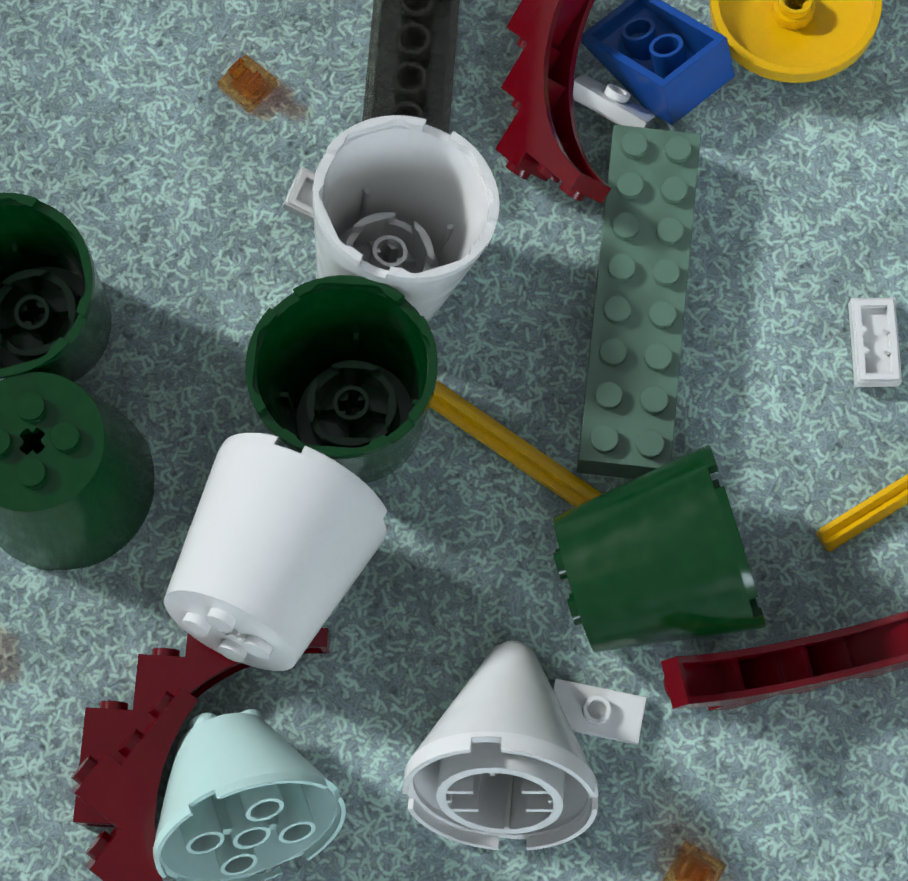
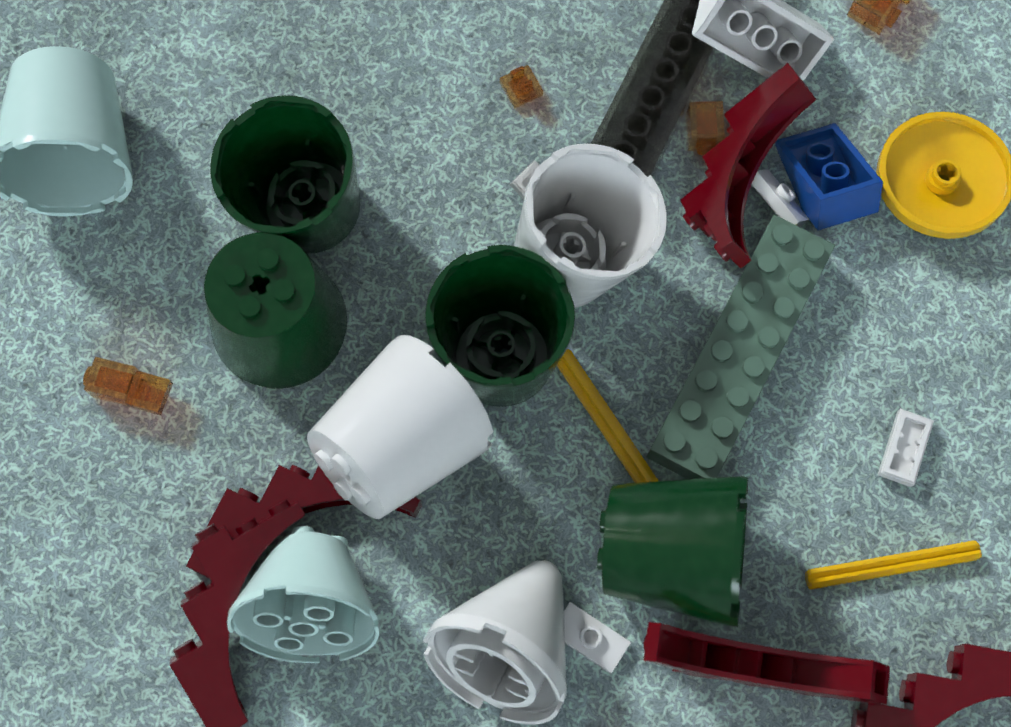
camera: 20 degrees right, 0 degrees up
(489, 49) = (704, 125): none -> clear orange brick

